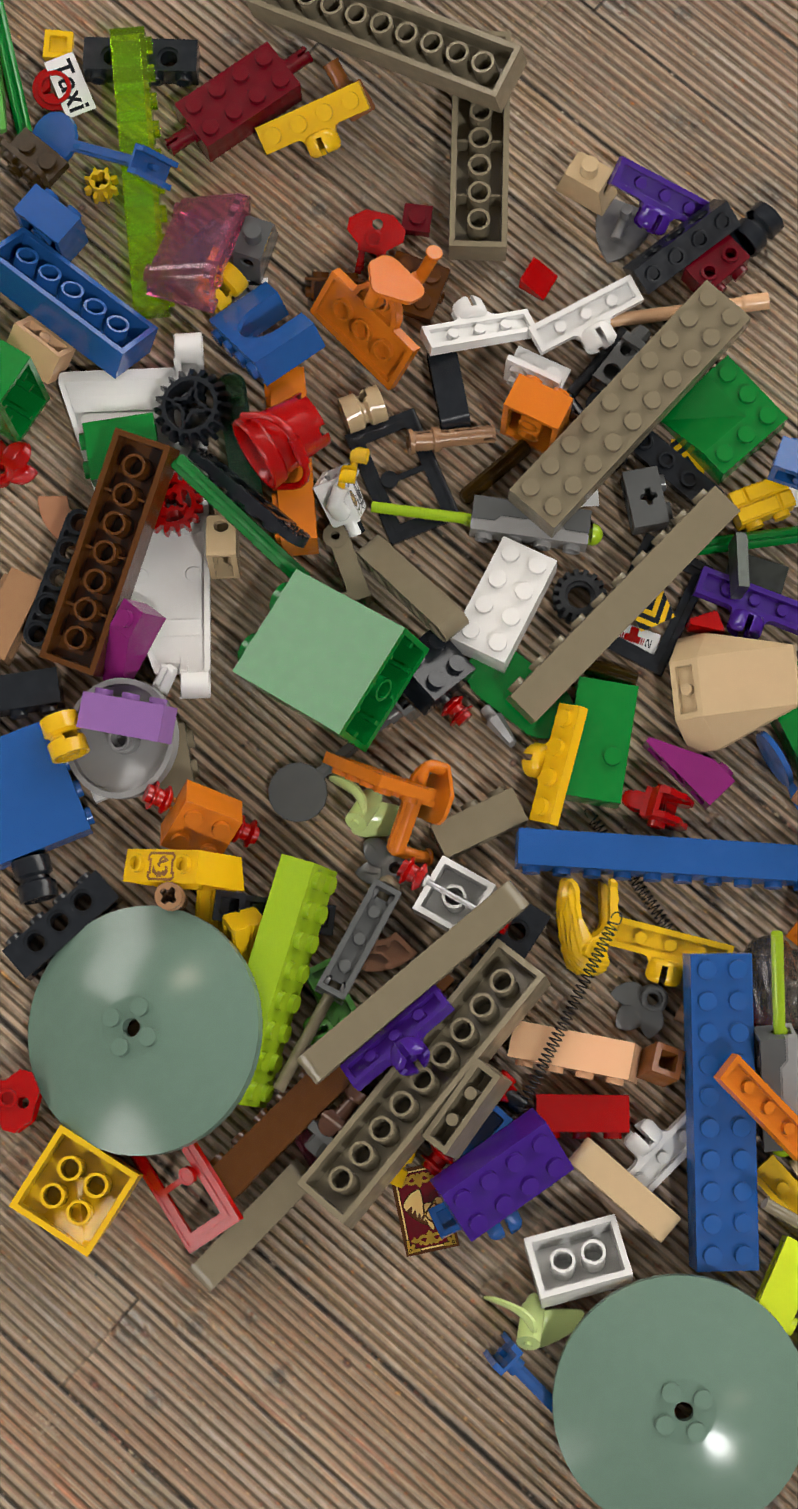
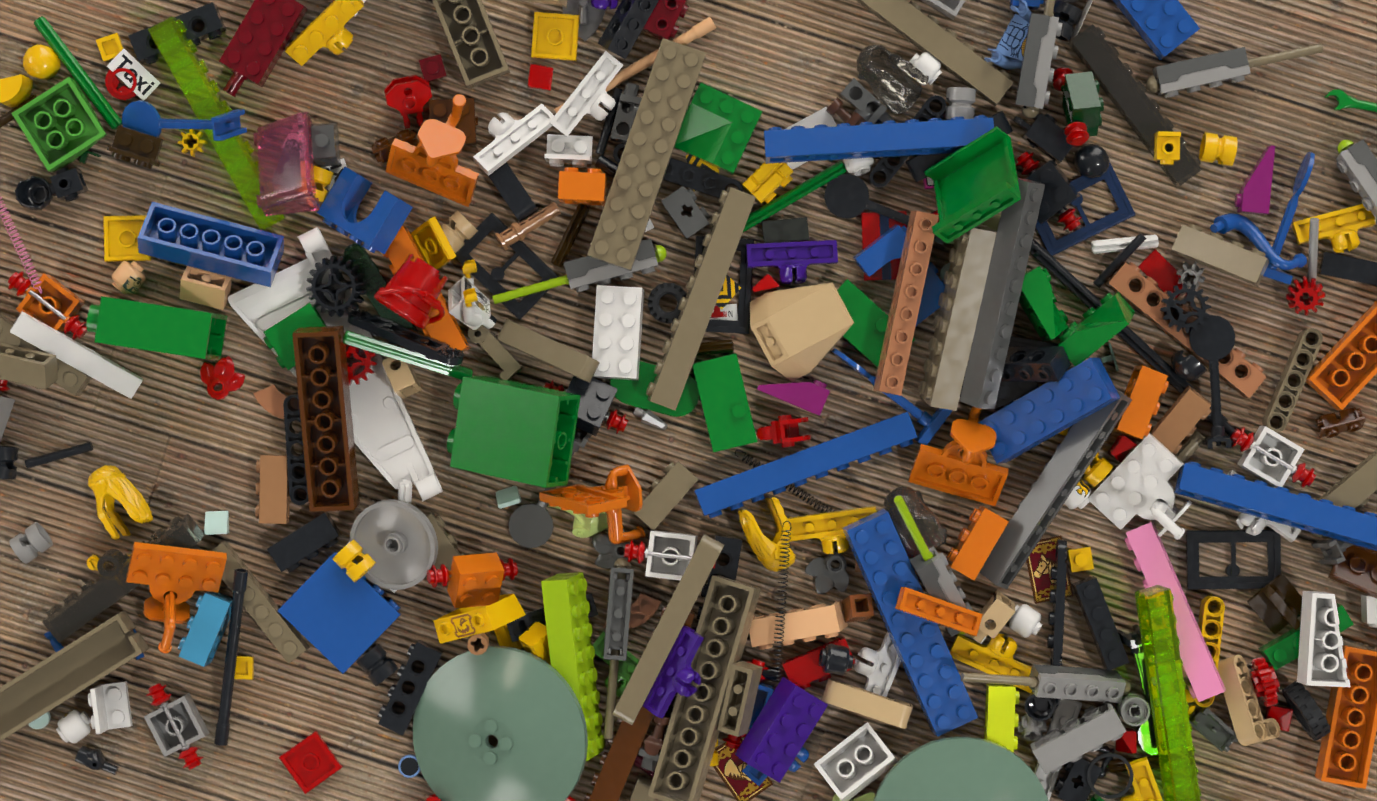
camera: 20 degrees left, 10 degrees up
(15, 1023) = (409, 766): none -> black tile
(52, 221) = (171, 191): blue brick -> none
(127, 715) = (392, 531): medium lavender brick -> none
(130, 638) = (368, 472): magenta slope -> none
(285, 747) = (508, 497): none -> light aqua slope
(333, 405) = (433, 244): none -> yellow tile
(554, 763) = (699, 433): yellow plate -> none
(575, 242) = (555, 36): none -> yellow tile
(607, 1114) = (835, 659): none -> black head
(738, 565) = (771, 235): pearl dark grey tile -> none

